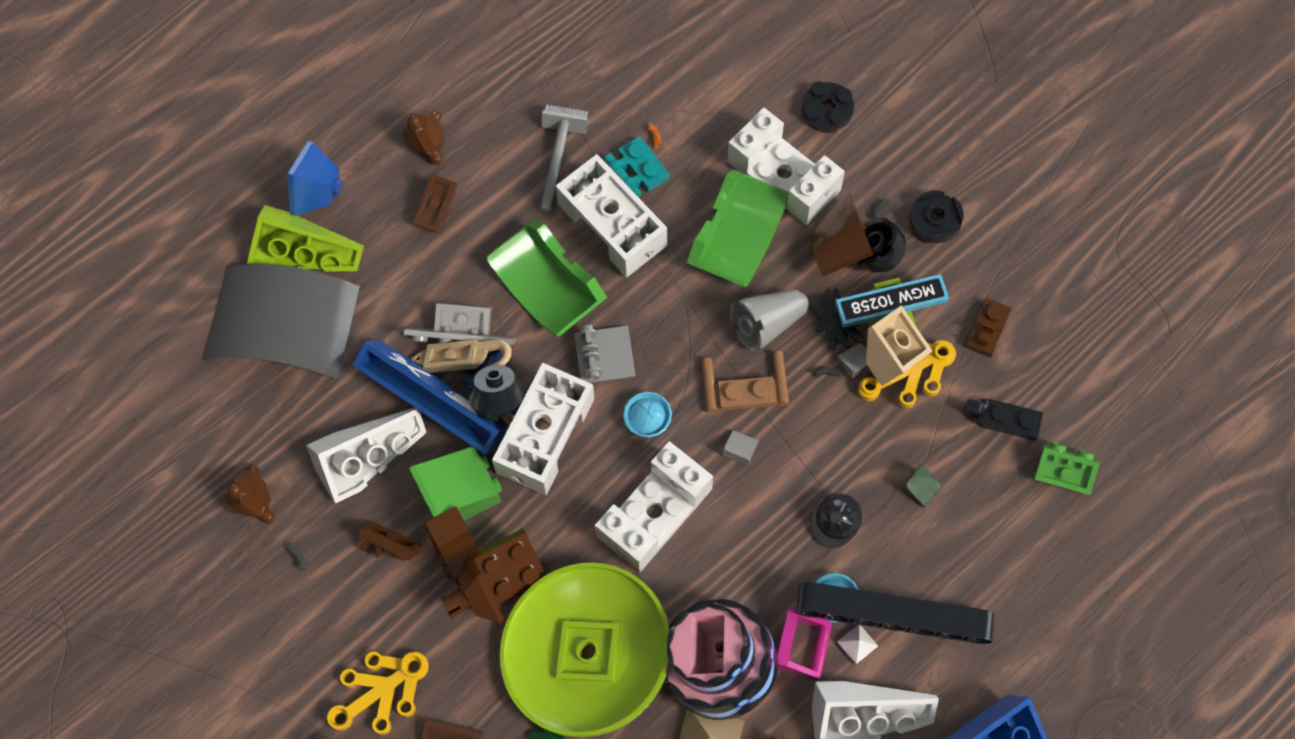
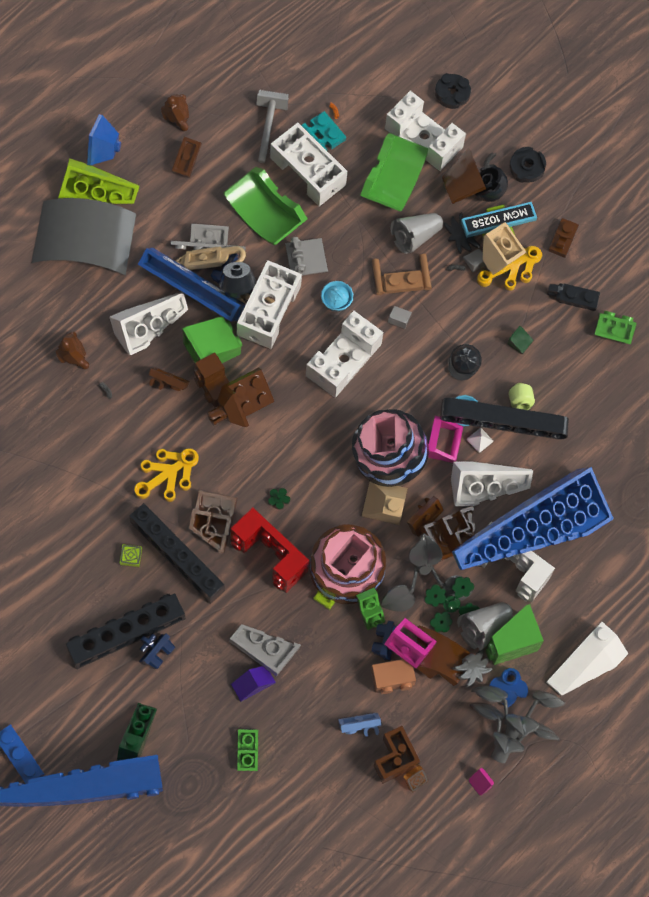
camera: 10 degrees left, 0 degrees up
(546, 642) = (297, 419): lime dish -> none
(922, 577) = (521, 396): none -> yellowish green head

